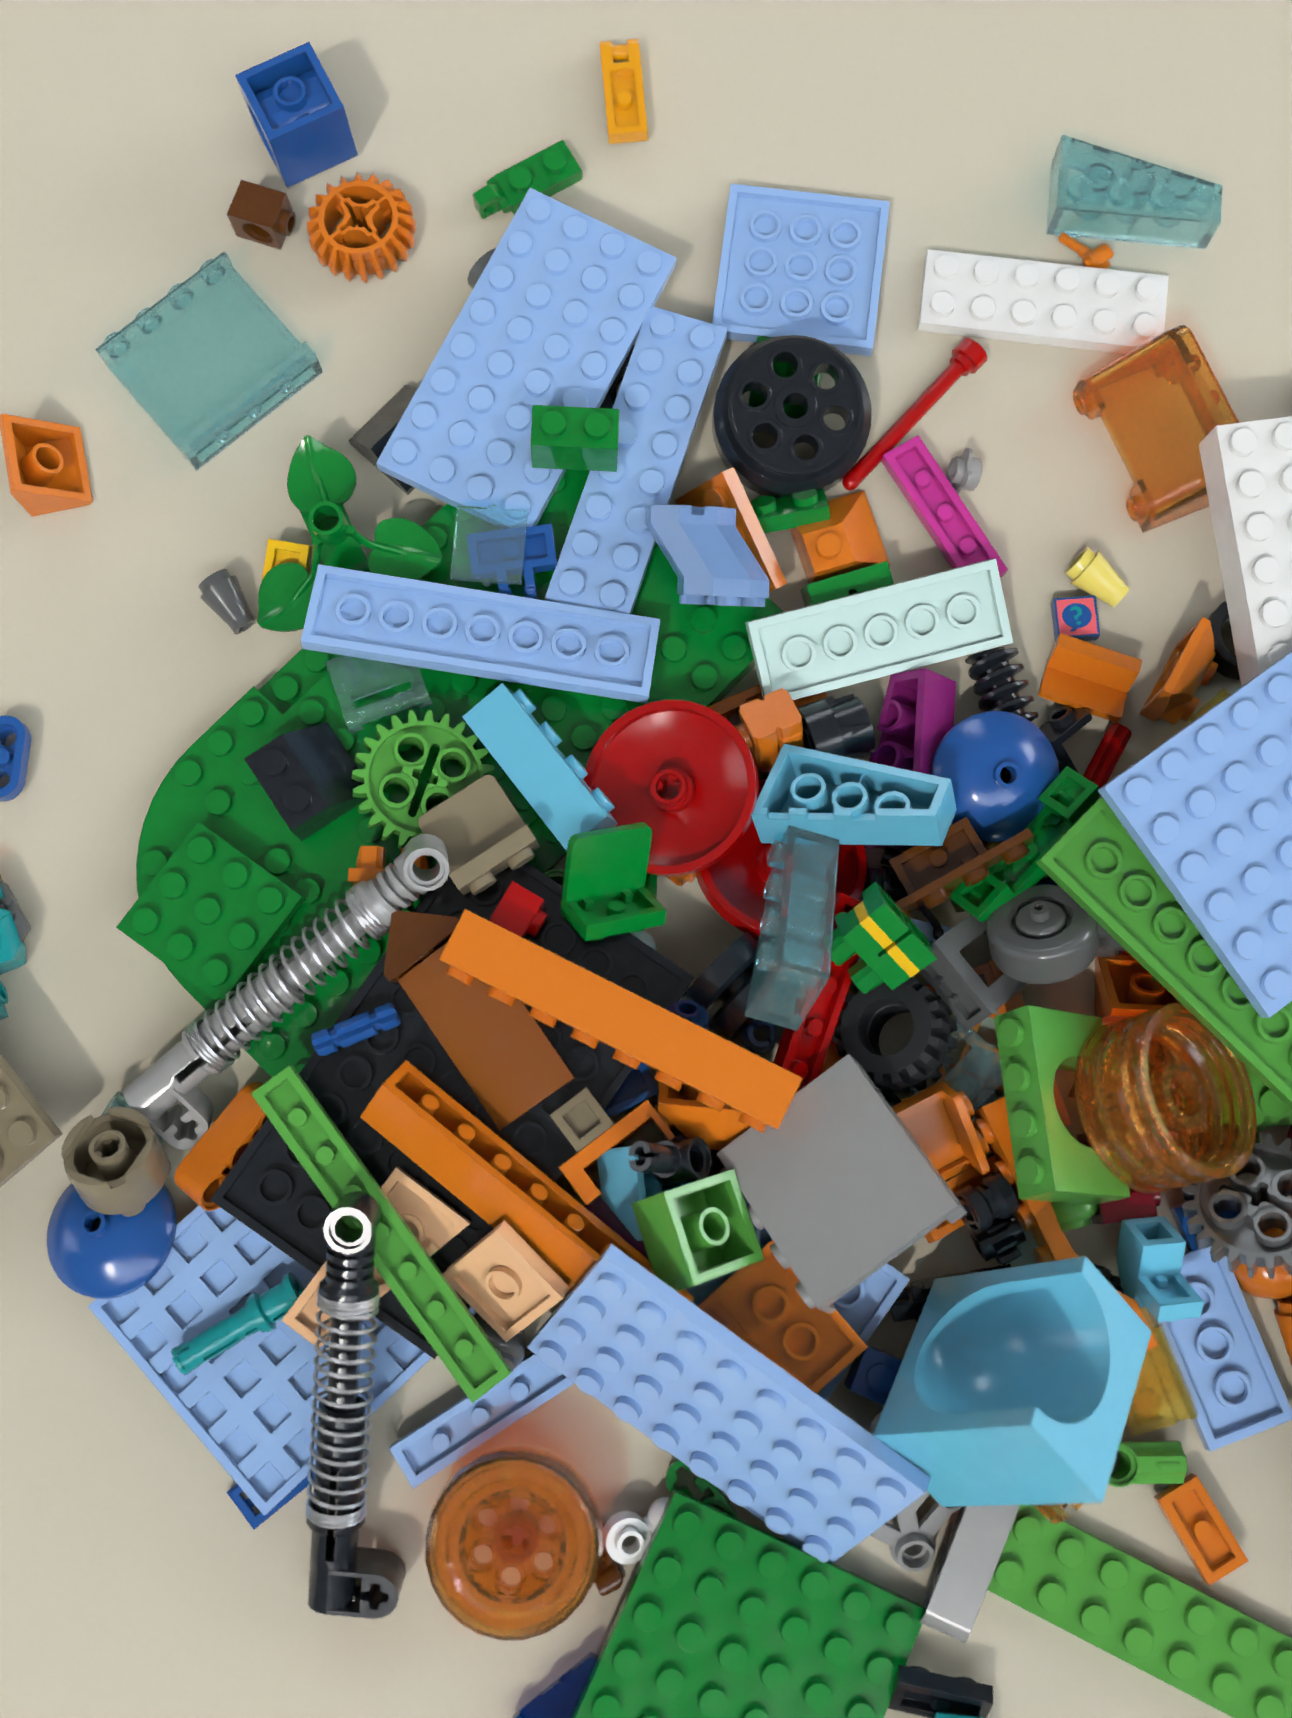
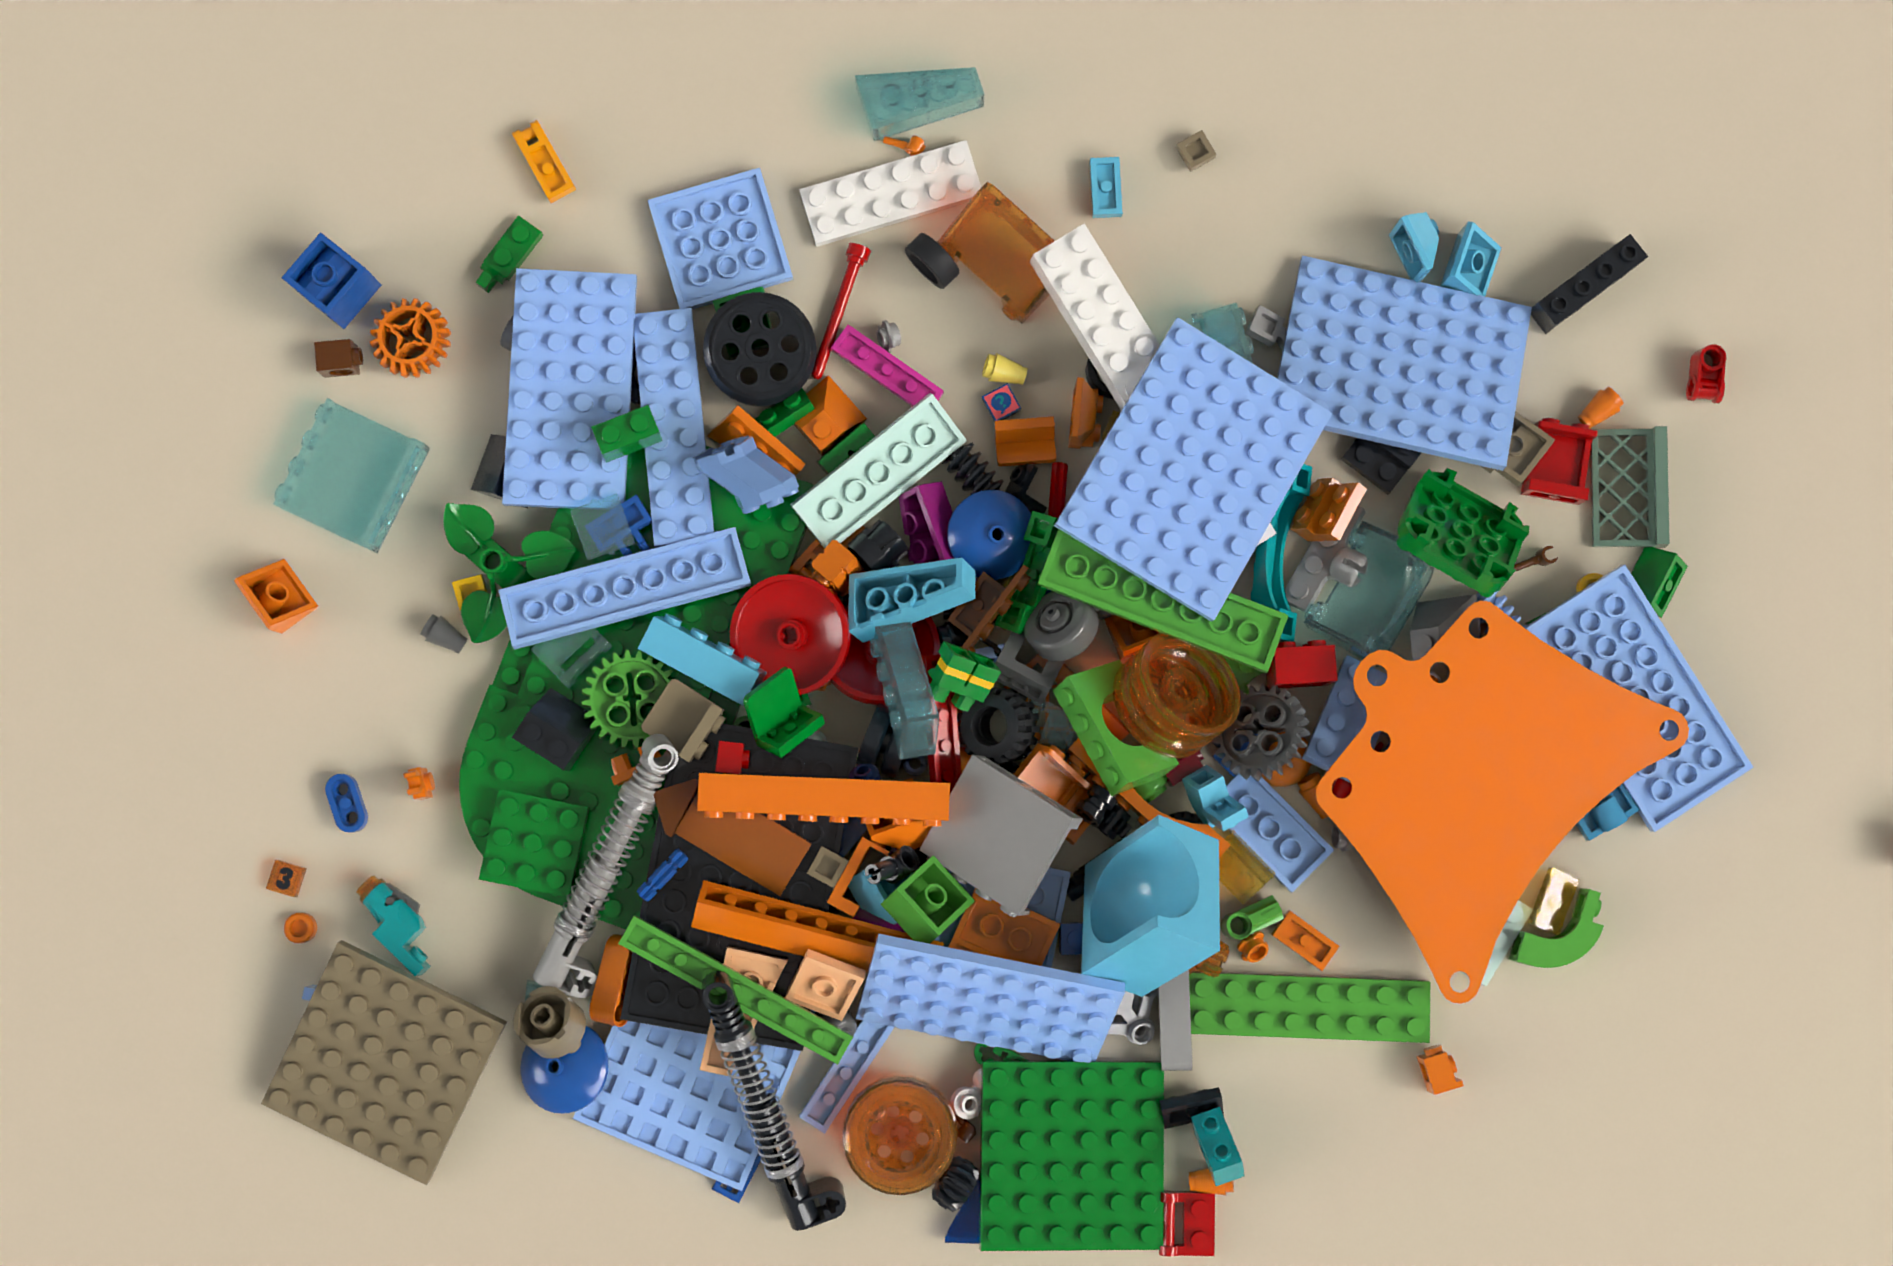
camera: 30 degrees left, 5 degrees up
(105, 772) = (420, 783): none -> orange plate
(259, 1314) = (682, 1073): teal pin -> none
(561, 1652) = (955, 1184): none -> black gear
(1063, 399) = (932, 260): none -> black tyre
(1123, 1505) = (1253, 947): none -> orange plate

